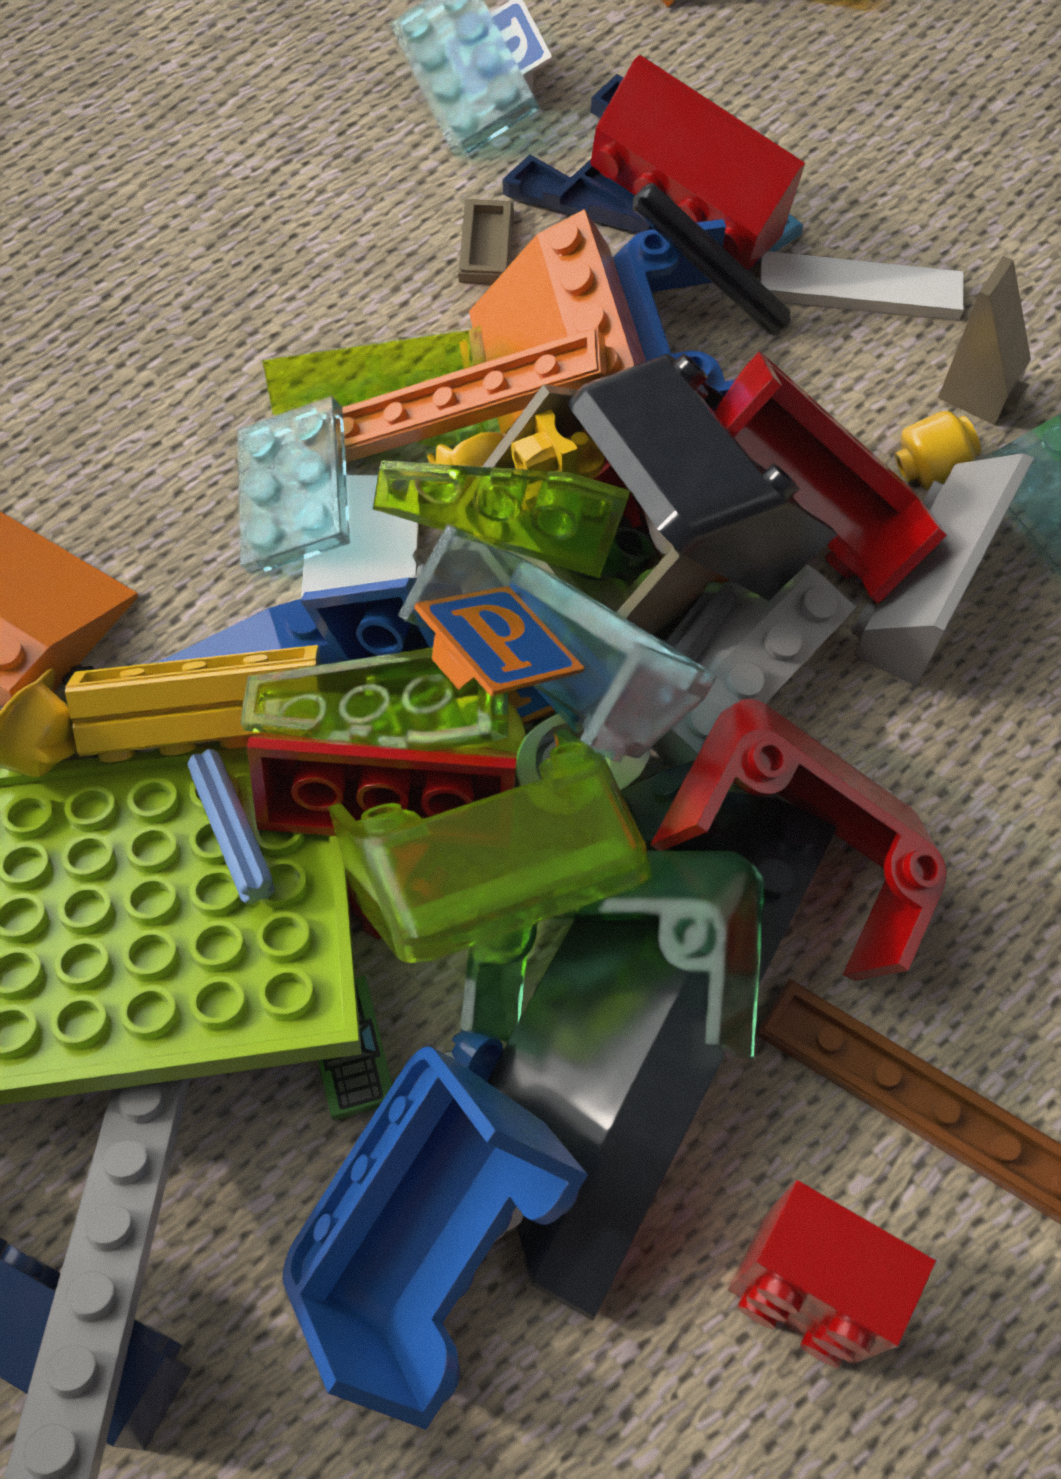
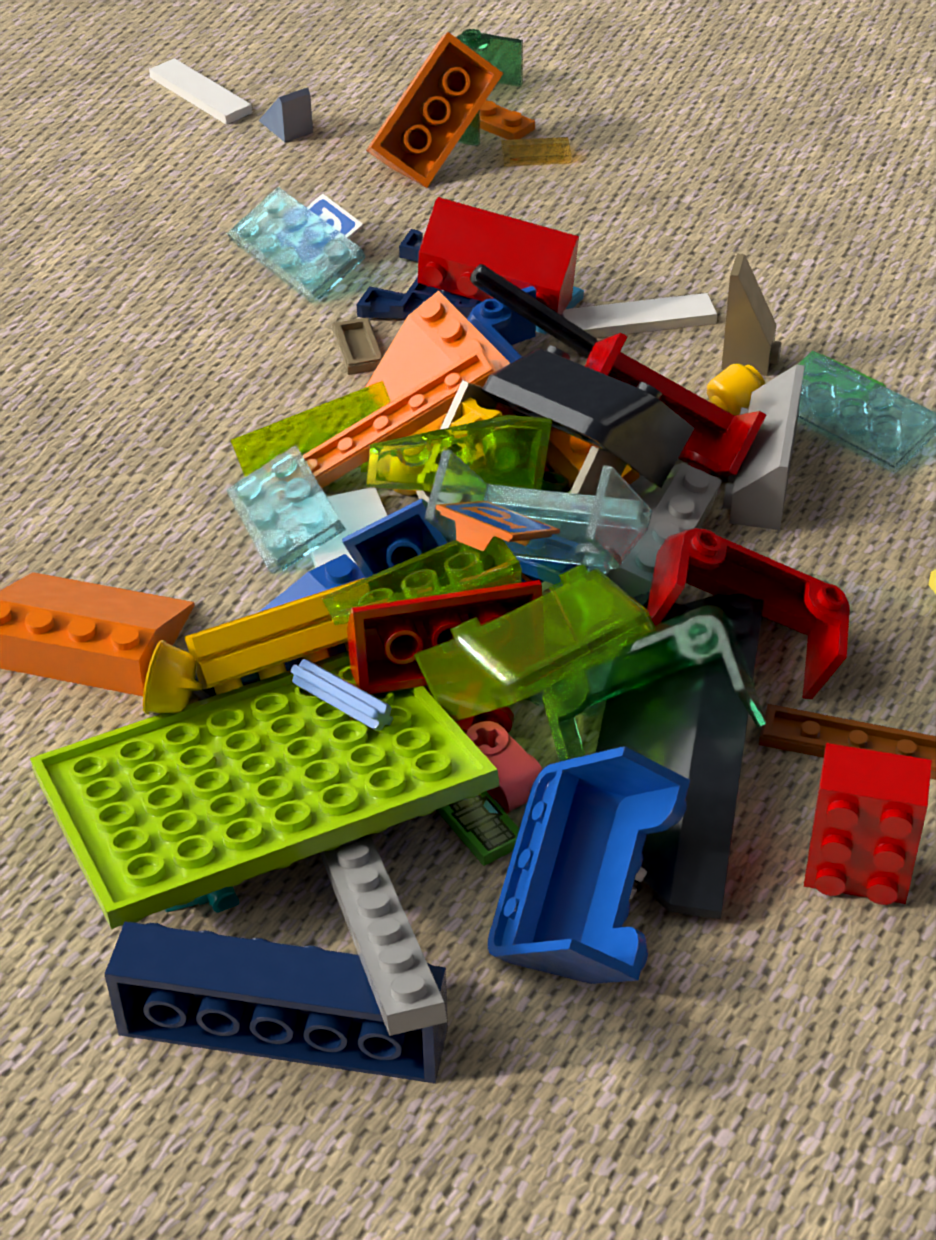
camera: 15 degrees left, 20 degrees down
(406, 996) = (514, 766): none -> coral piece

